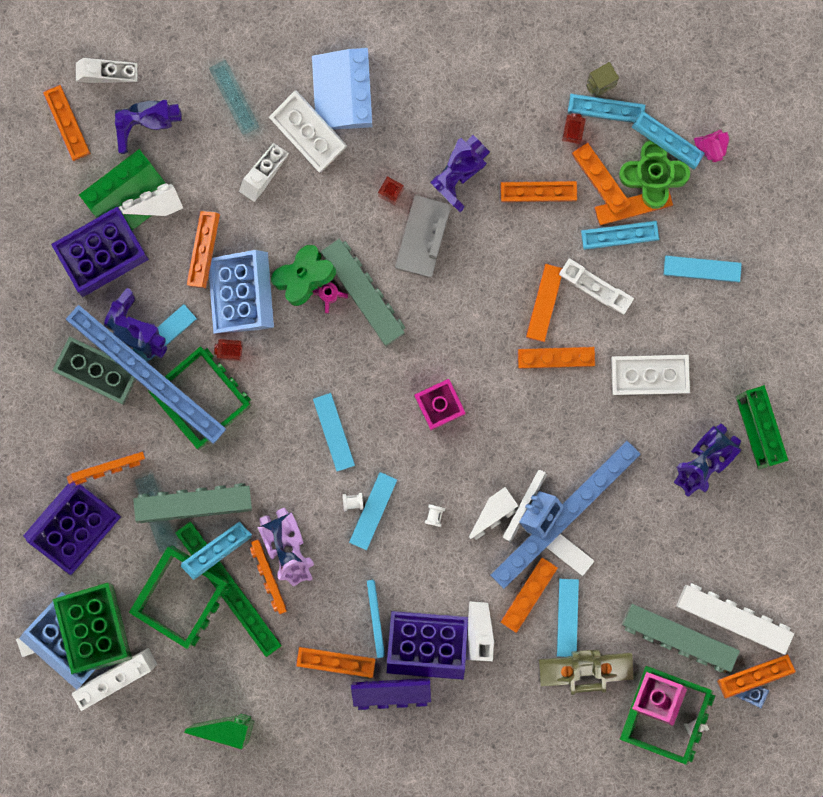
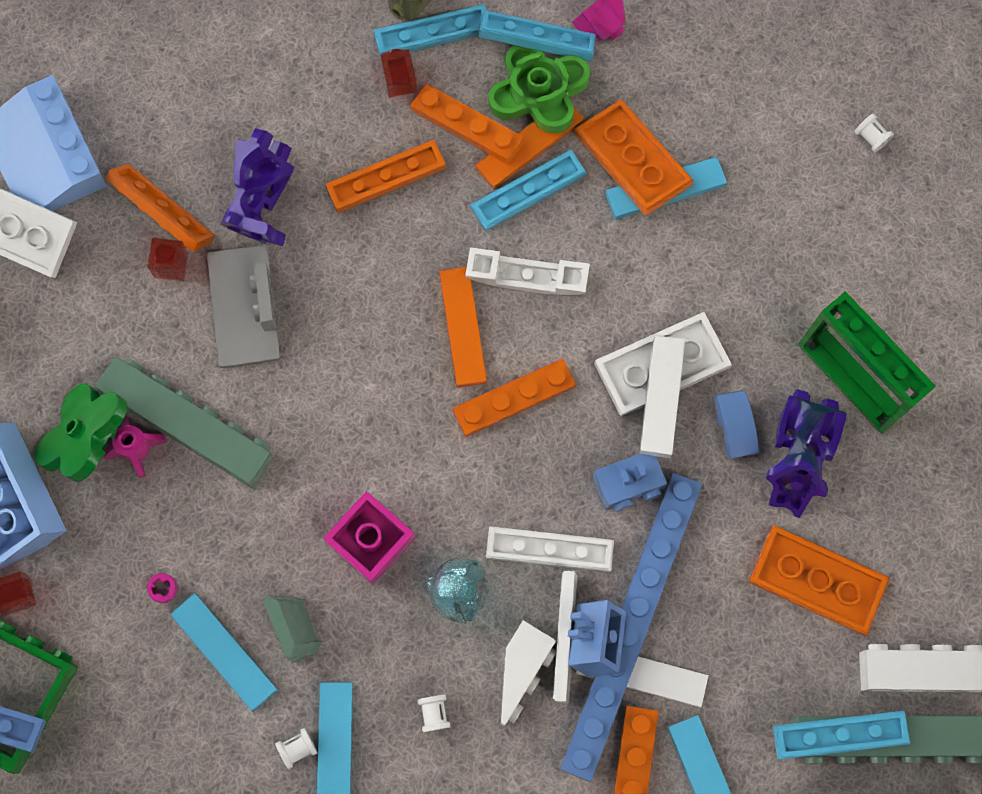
camera: 30 degrees left, 10 degrees down
(317, 377) = (165, 579): none -> dark pink bush
(377, 435) = (292, 626): none -> sand green slope
(398, 155) = (160, 207): none -> orange plate
(474, 453) = (455, 589): none -> clear light blue cylinder
(538, 453) = (550, 549): none -> white tile
(600, 434) = (629, 481): none -> medium blue brick
(640, 395) = (662, 397): none -> white tile
(650, 623) = (841, 735): none -> medium azure tile
(676, 428) = (738, 424): none -> medium blue slope
(681, 536) = (819, 580): none -> orange tile
(691, 242) = (633, 157): none -> orange tile

